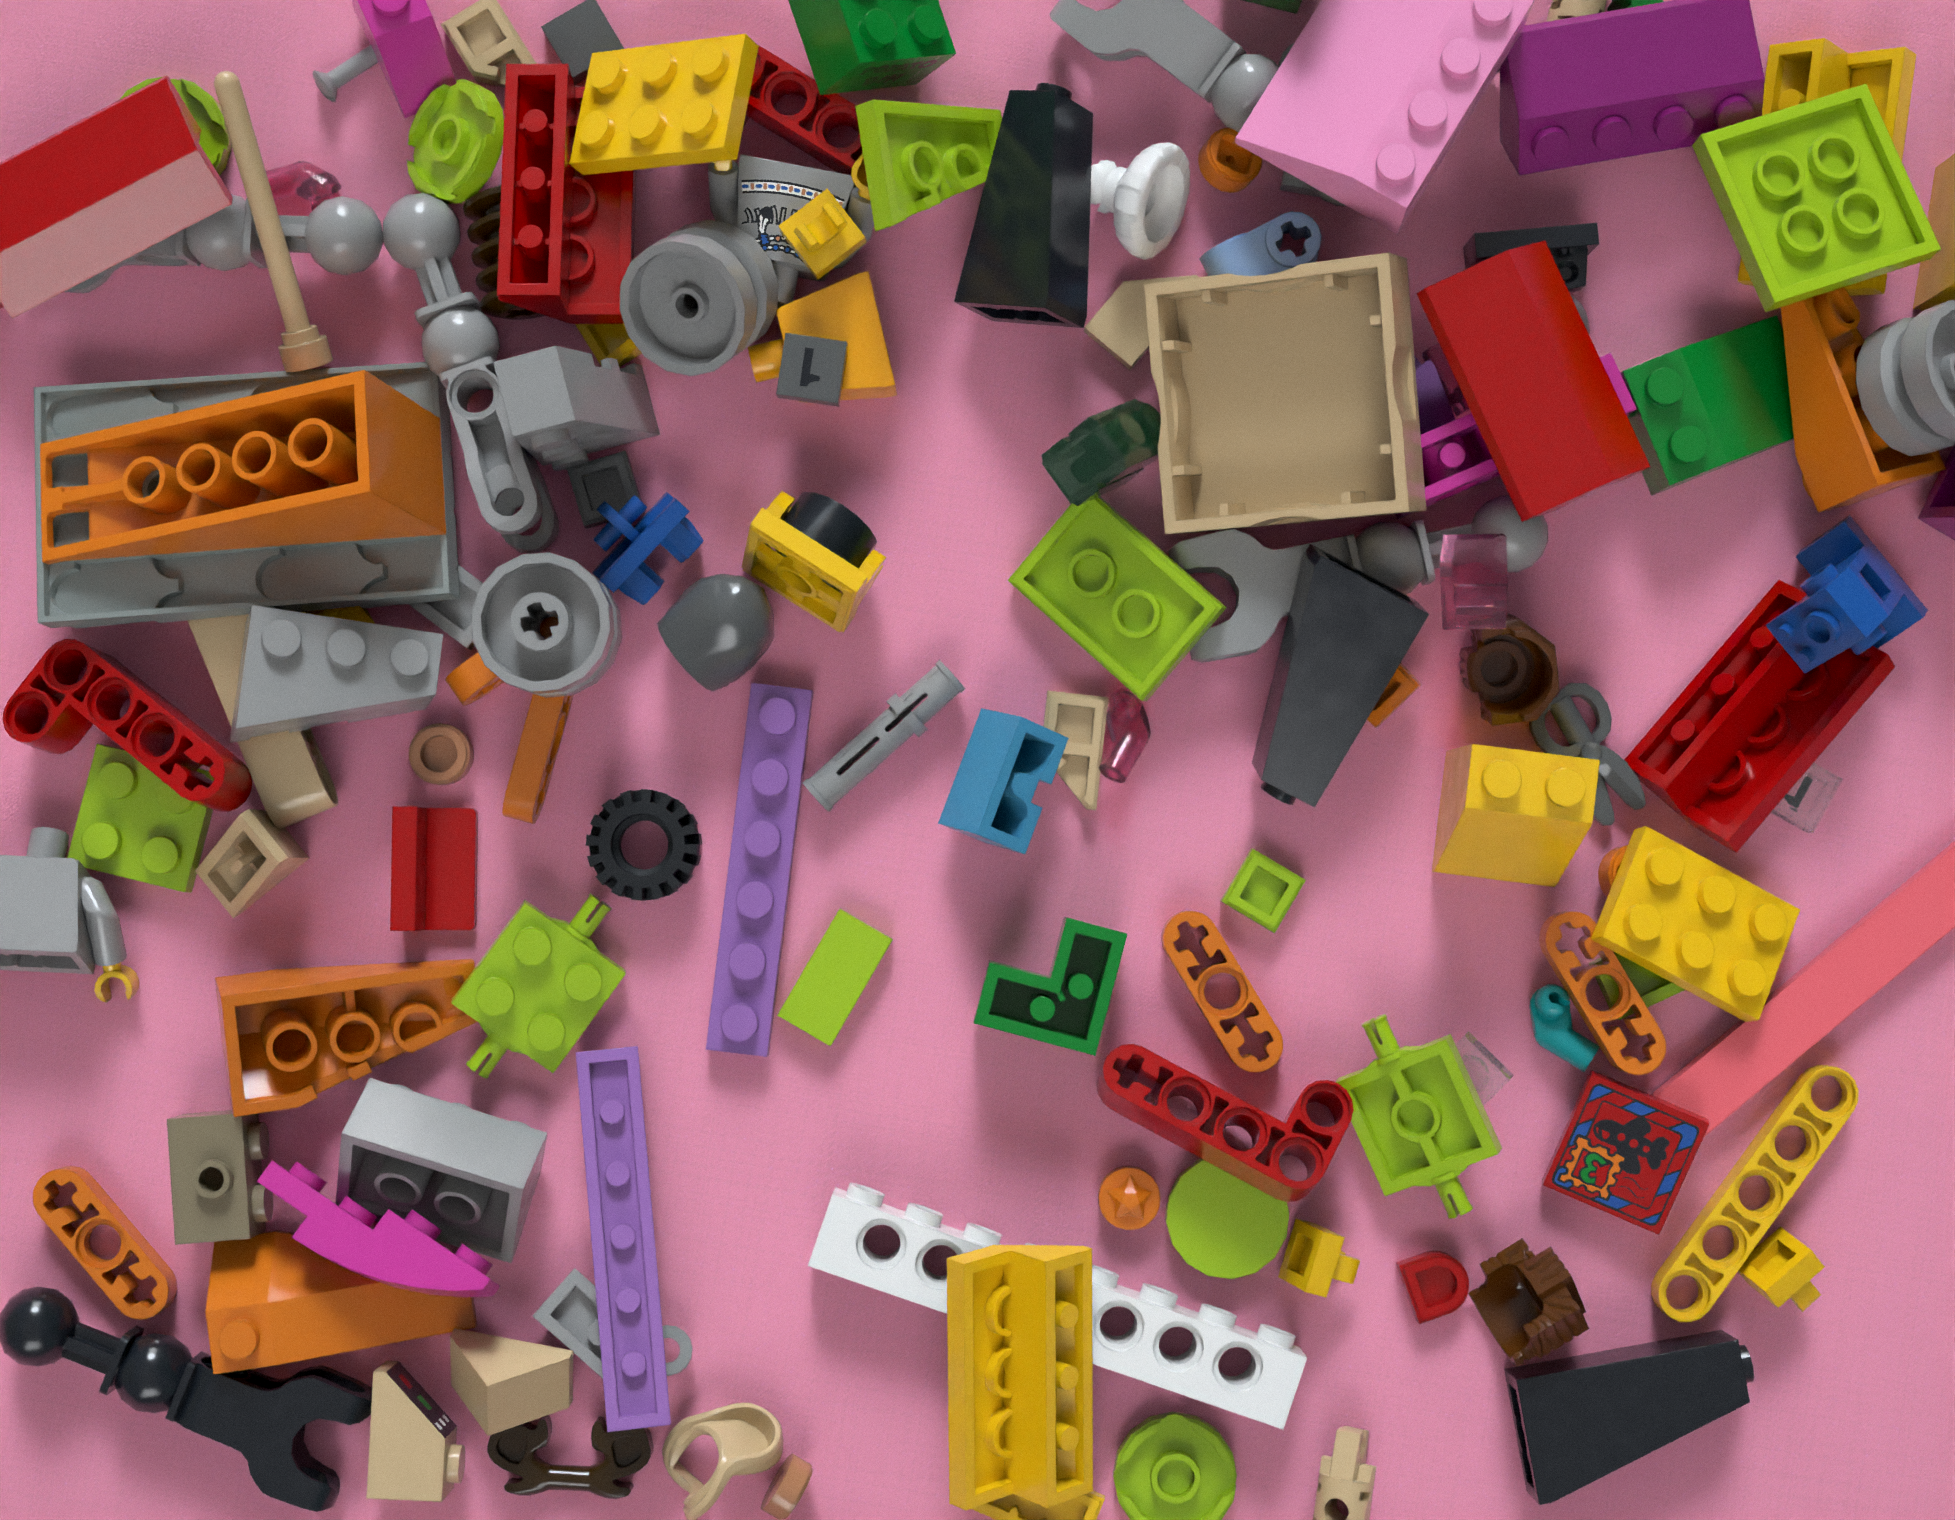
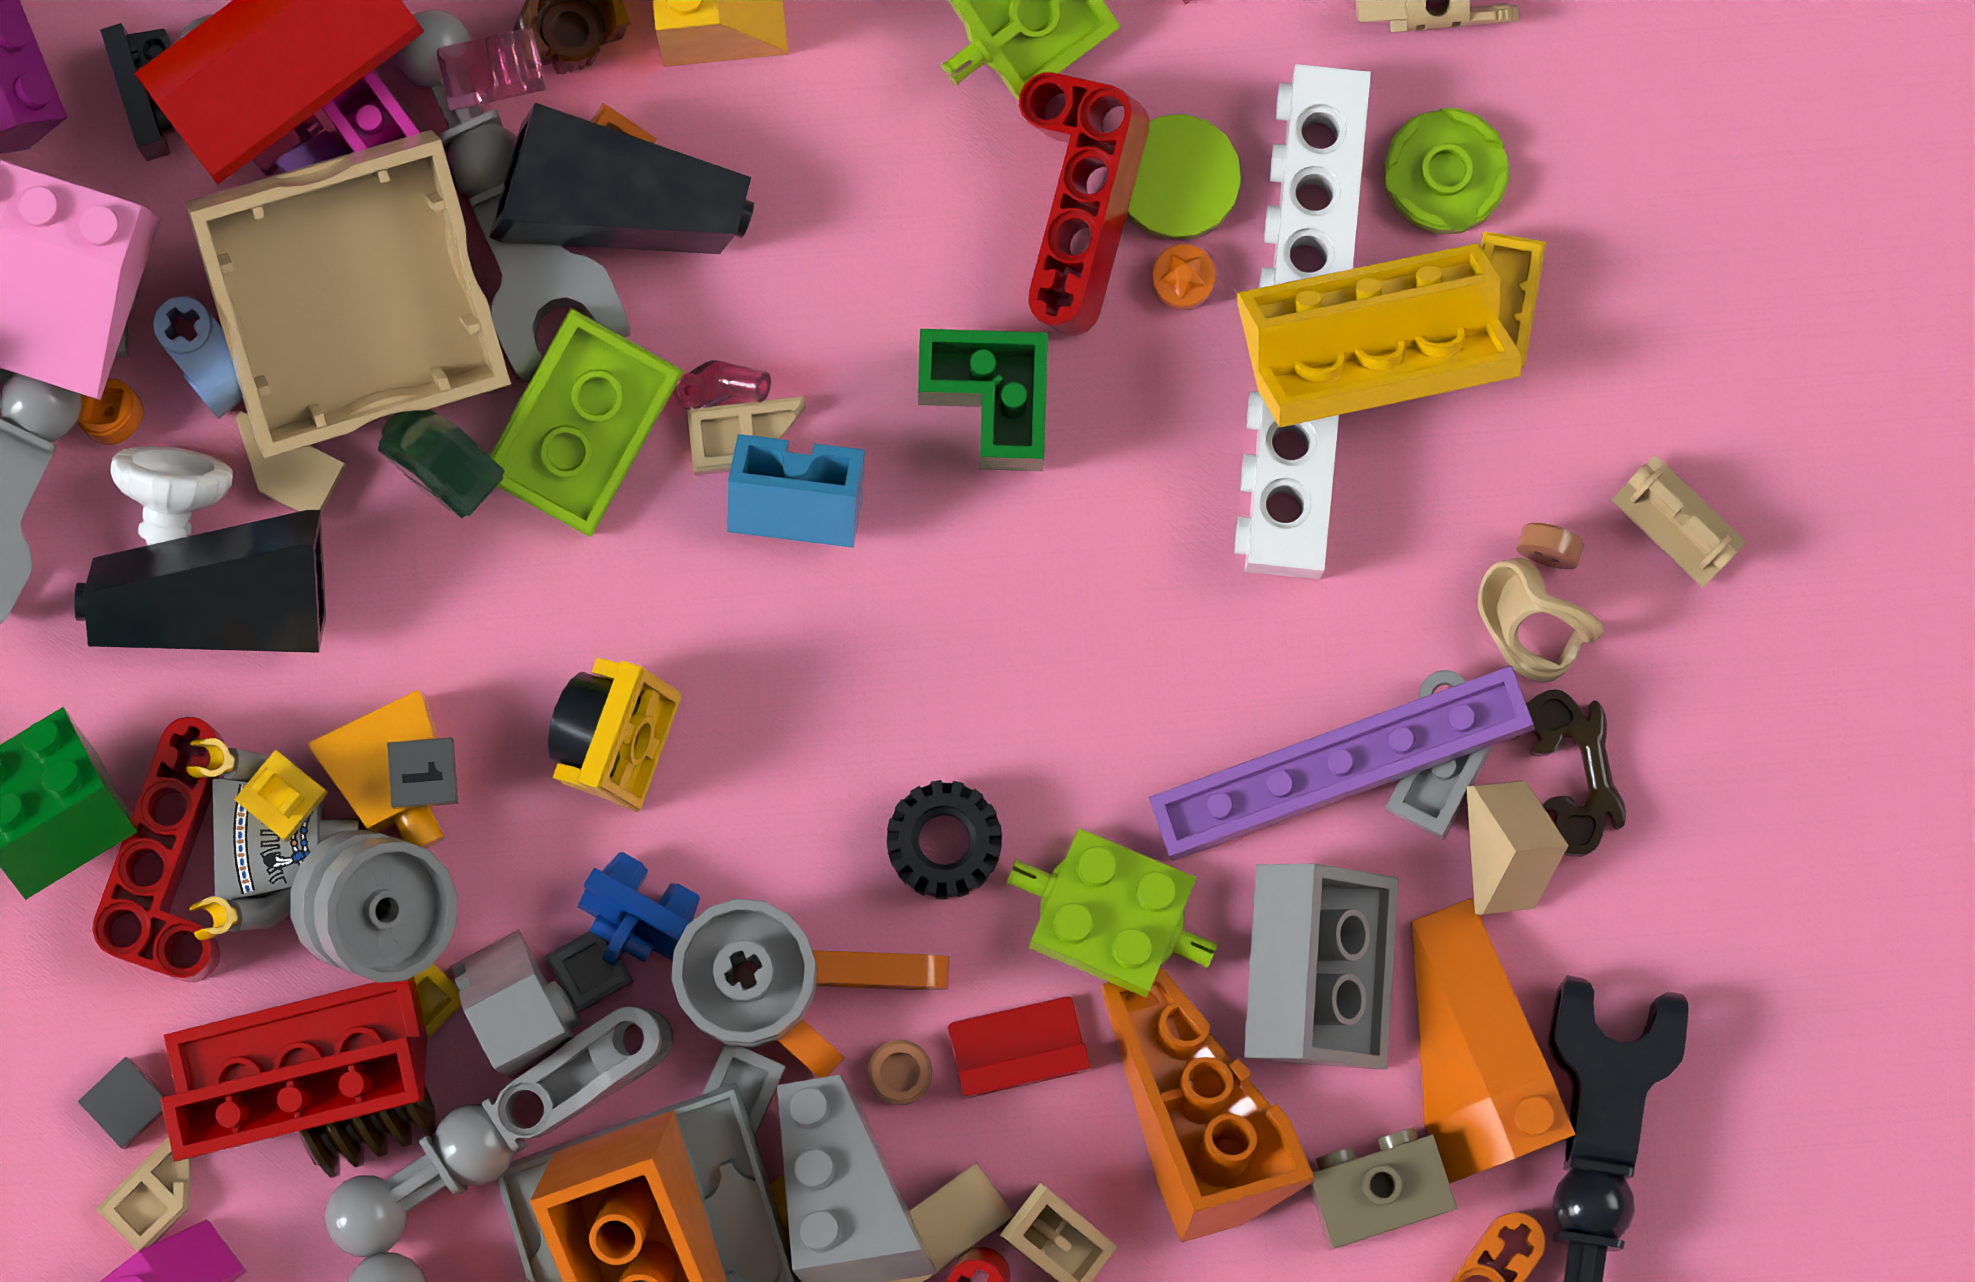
camera: 105 degrees left, 5 degrees down
(392, 1253) = (1414, 980): dark pink slope -> none
(410, 1441) = (1599, 929): tan slope -> none
(455, 141) = (263, 1201): lime tile -> none
(664, 105) = (184, 985): yellow plate -> none
(719, 628) = (705, 811): dark grey piece -> none
(759, 870) = (941, 720): medium lavender plate -> none
(835, 977) = (1032, 618): lime tile -> none
(922, 154) = (180, 708): lime wing -> none
(938, 685) = (714, 580): light grey pin -> none
(1232, 1038) = (1000, 210): orange beam -> none
(1262, 890) = (846, 214): lime tile -> none
(1315, 1259) = (1198, 80): yellow tile -> none

